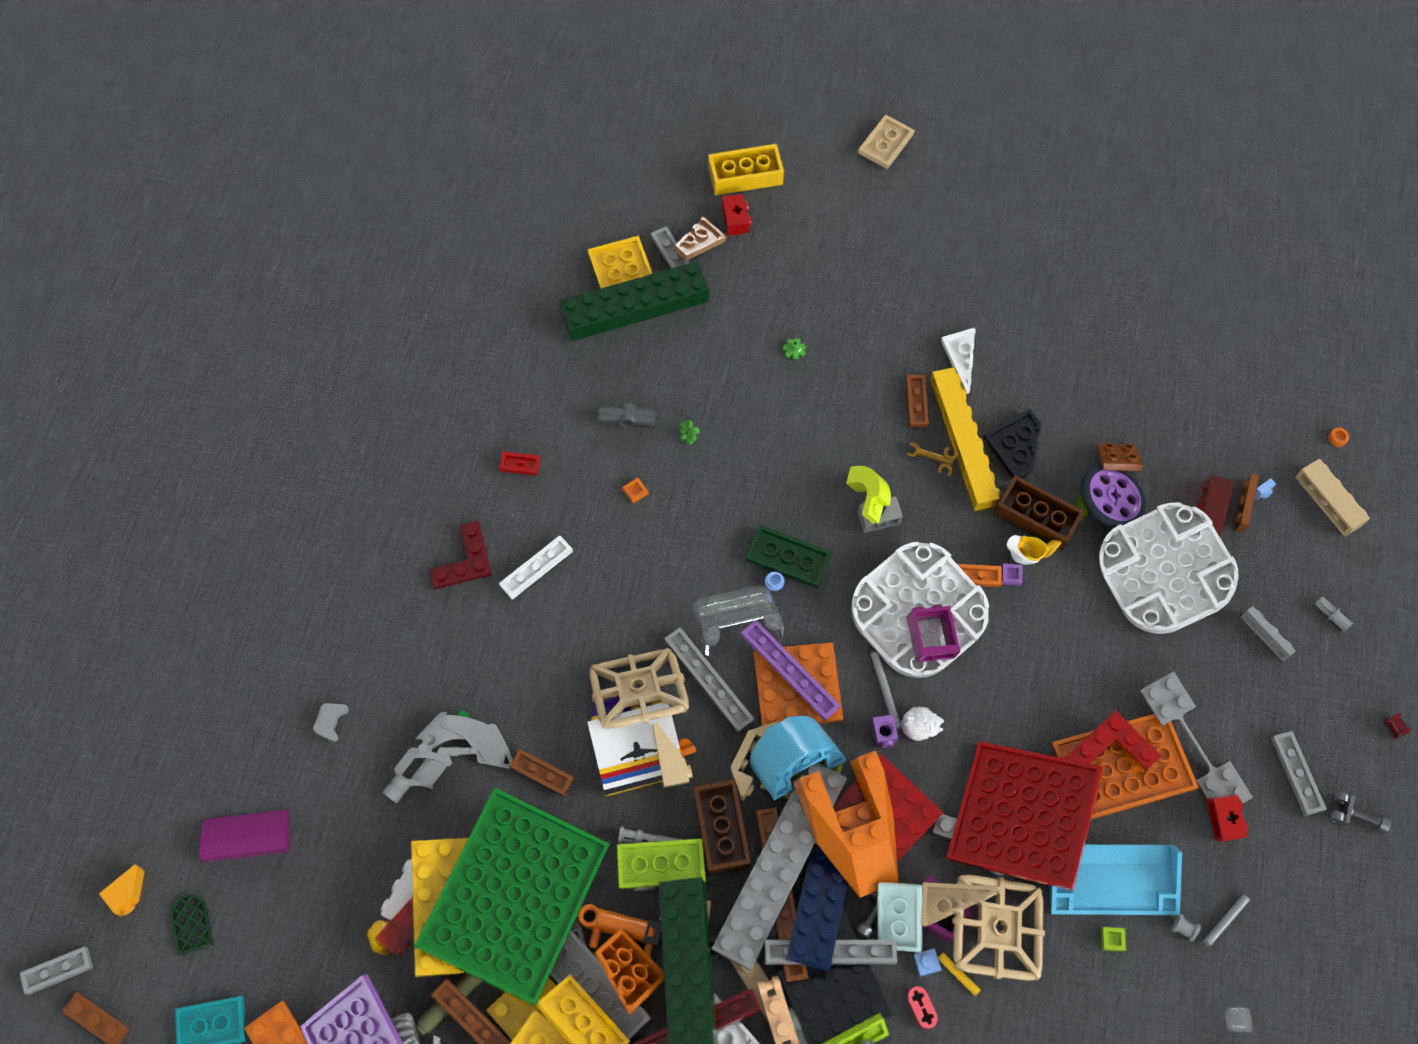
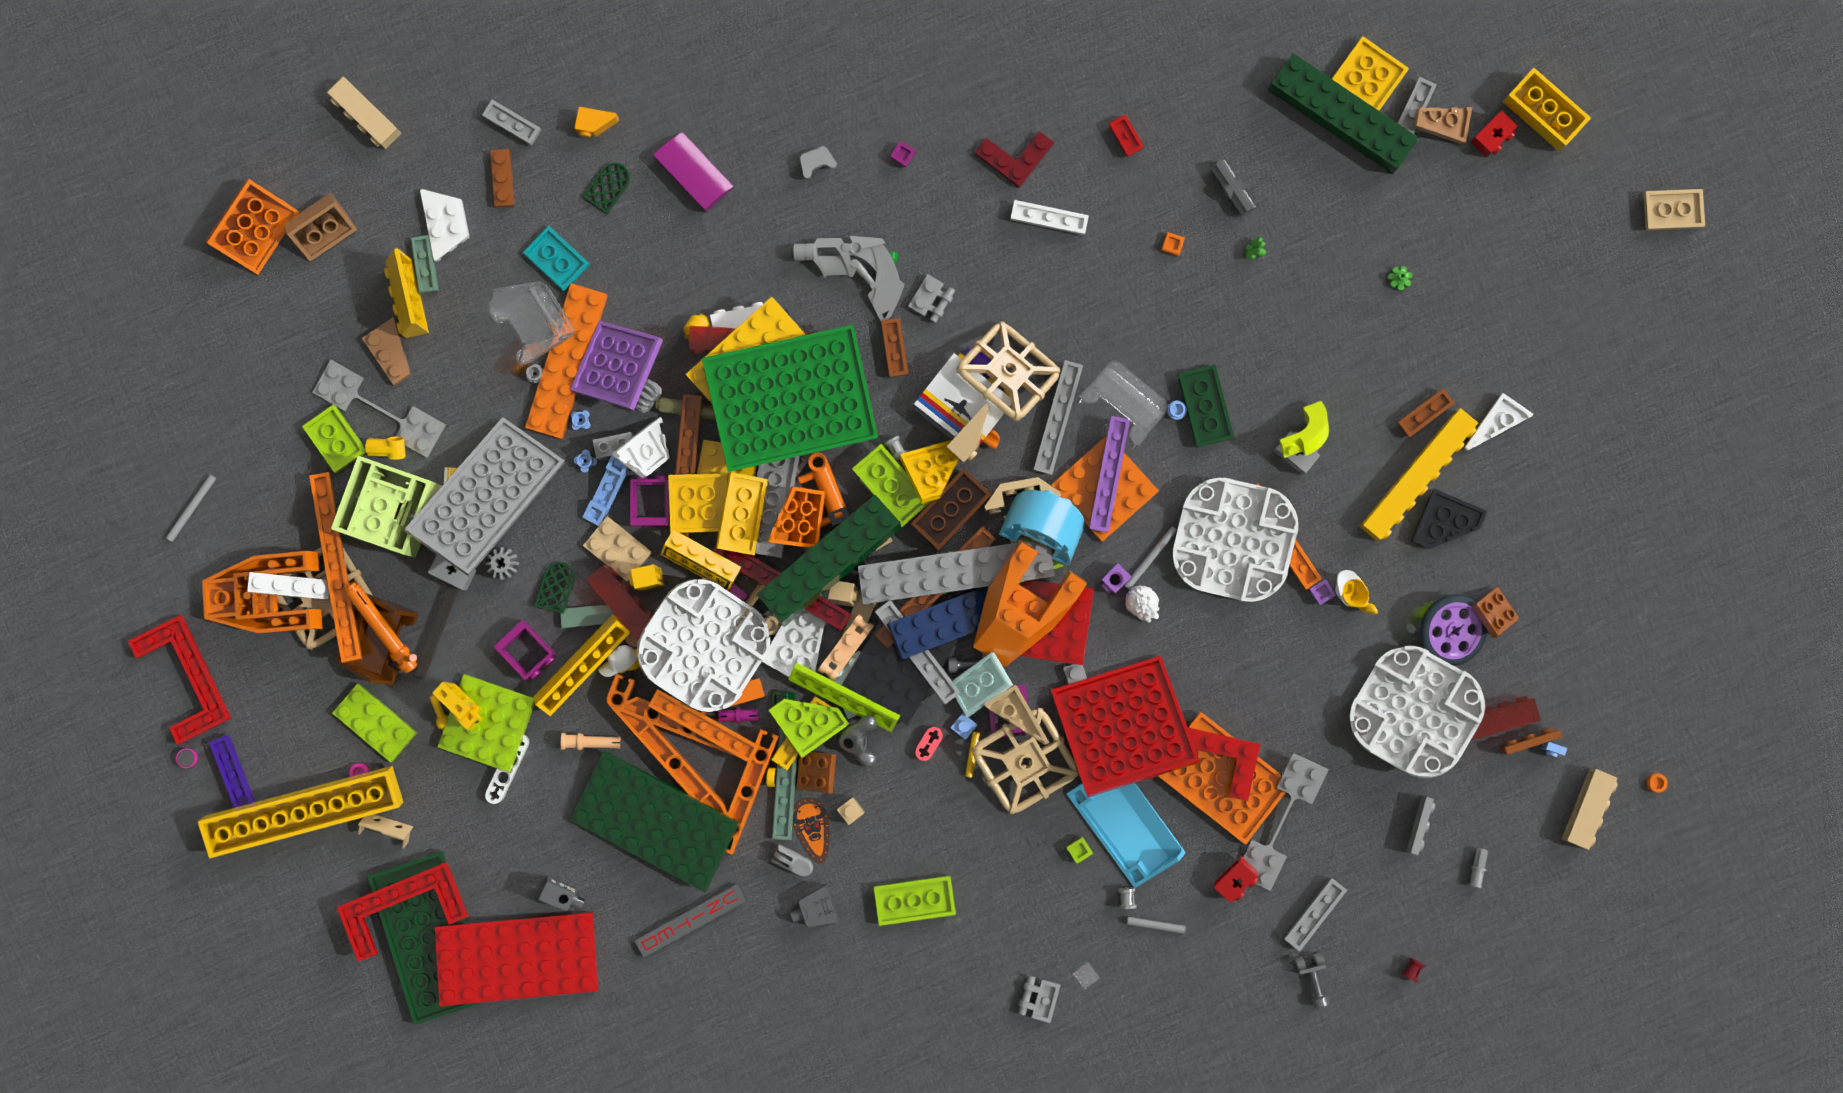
camera: 55 degrees right, 20 degrees up
(385, 645) = (903, 154): none -> magenta plate
(518, 713) = (926, 296): none -> light grey plate
(672, 818) = (929, 469): none -> yellow plate
(727, 982) = (844, 594): none -> tan brick
(922, 654) = (1240, 554): magenta window -> none
(947, 459) = (1386, 473): pearl gold bar -> none
(1038, 512) = (1392, 578): reddish brown brick -> none

